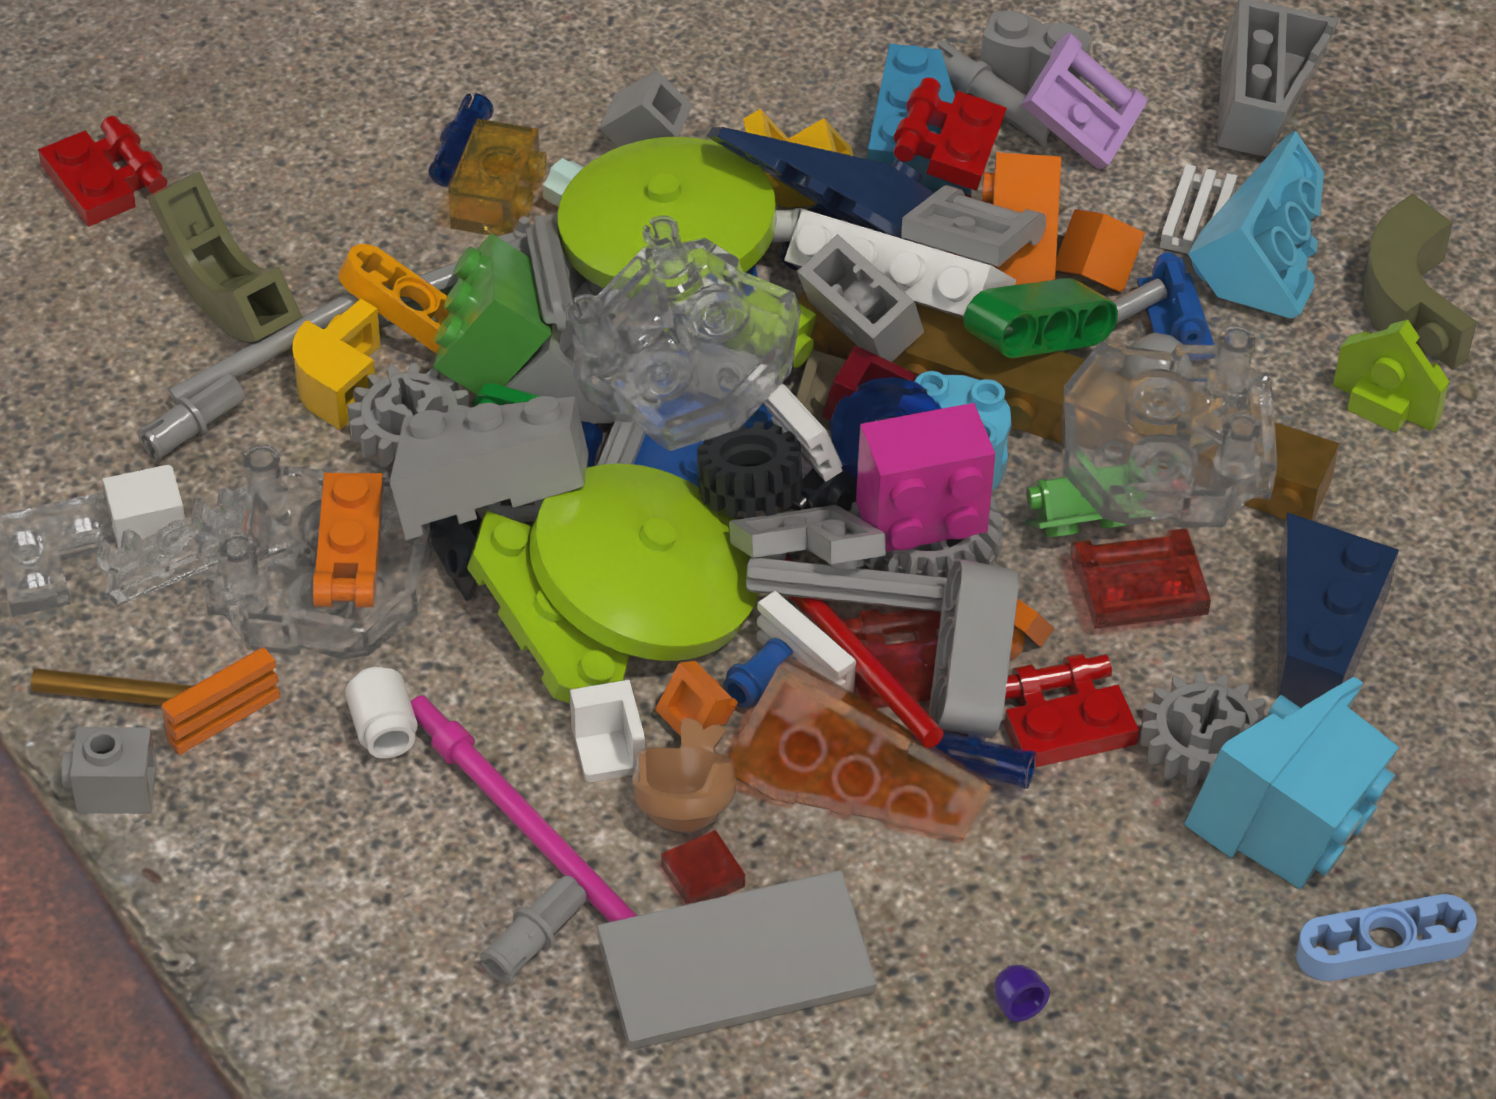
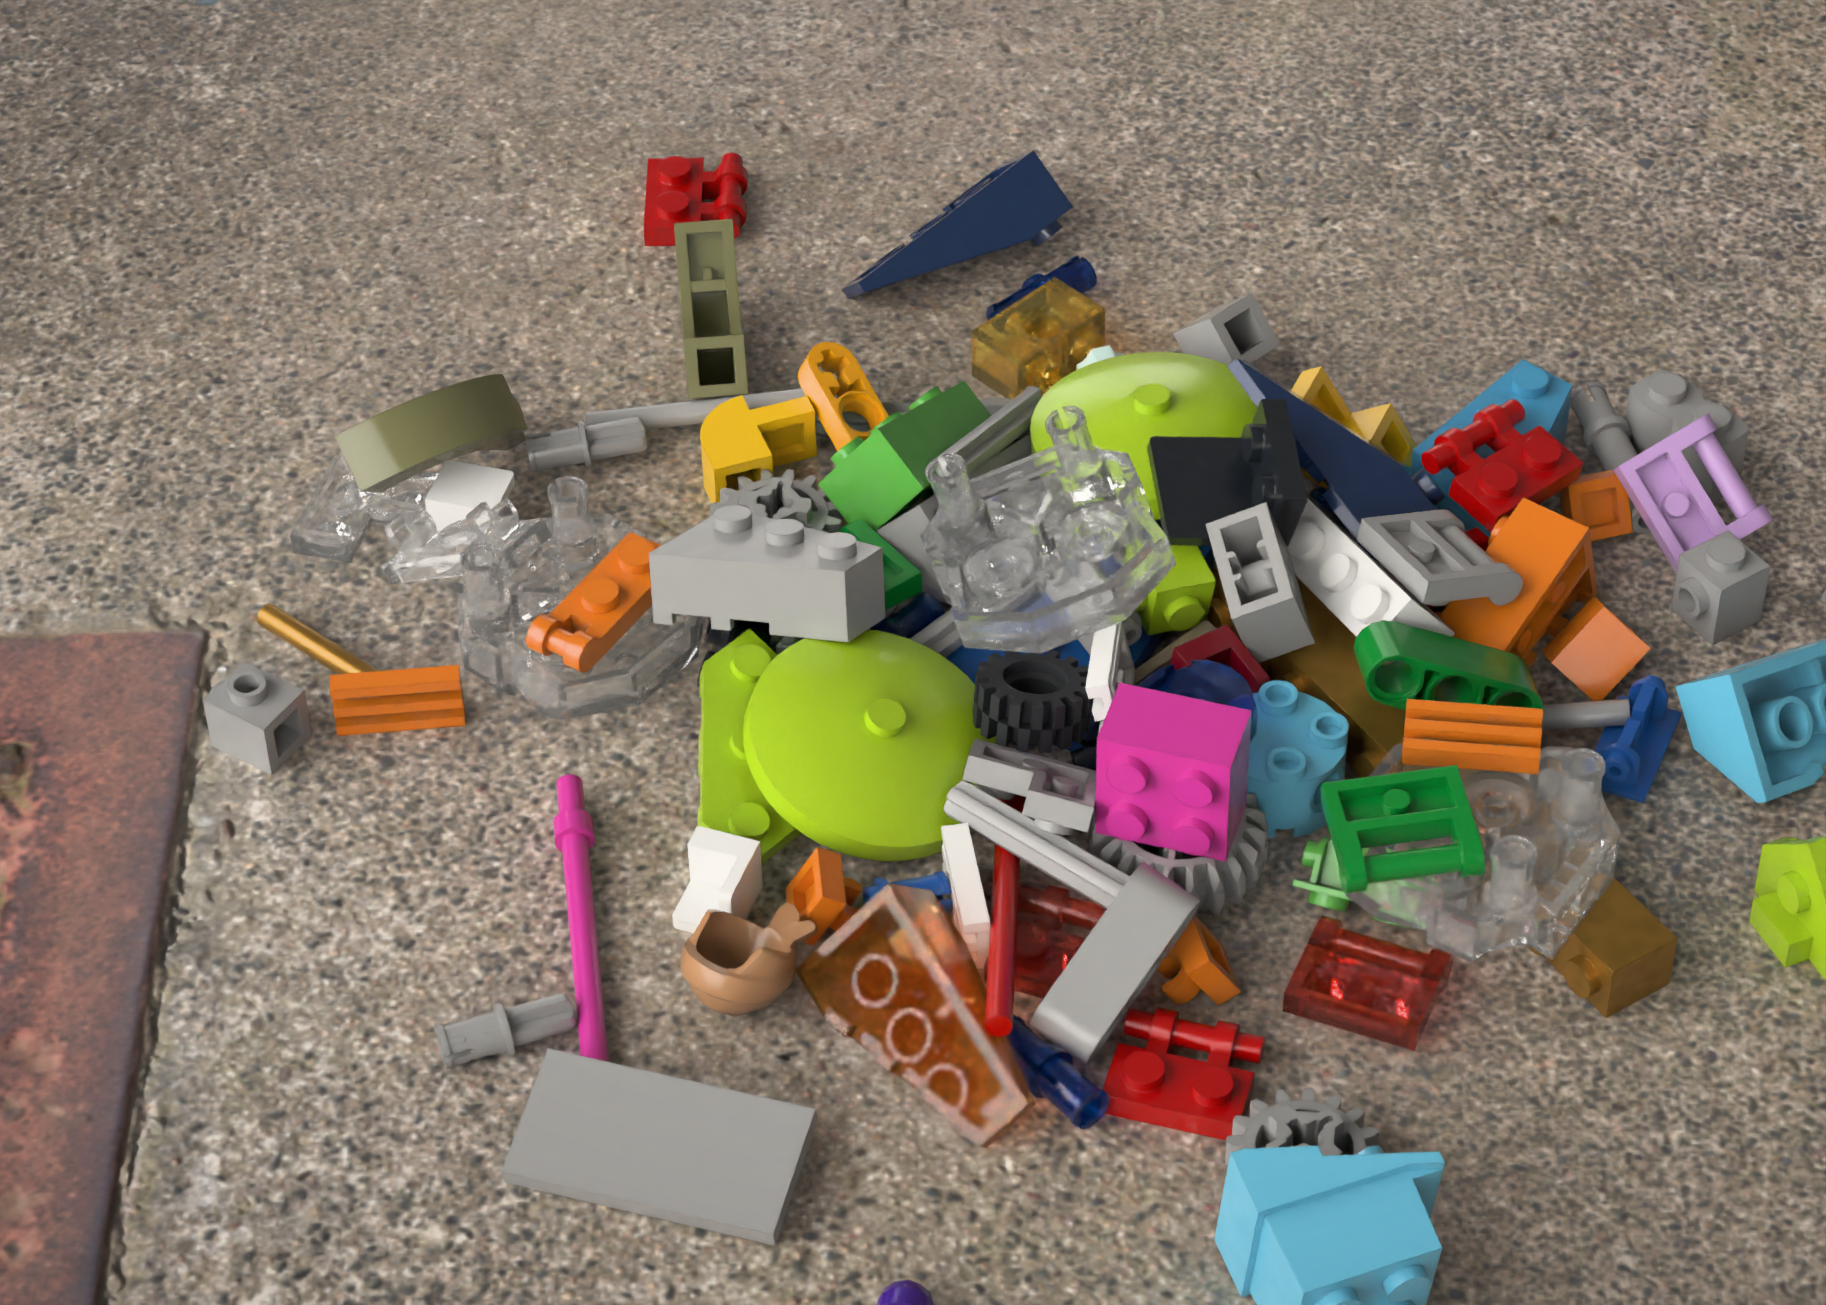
camera: 35 degrees right, 5 degrees down
(84, 461) = (431, 431): none -> olive arch
(362, 95) = (994, 214): none -> dark blue wedge
(381, 712) = (528, 773): white brick -> none
(703, 869) = (707, 1051): clear red tile -> none
(785, 222) = (1219, 476): none -> black bracket
(1018, 133) = (1598, 504): none -> orange tile
(1115, 347) = (1475, 730): none -> orange tile
(1122, 431) = (1398, 811): none -> green plate
(1150, 165) = (1720, 587): none -> light grey brick
(1206, 185) = (1743, 644): white tile -> none
(1326, 605) = (1533, 1101): dark blue wedge -> none

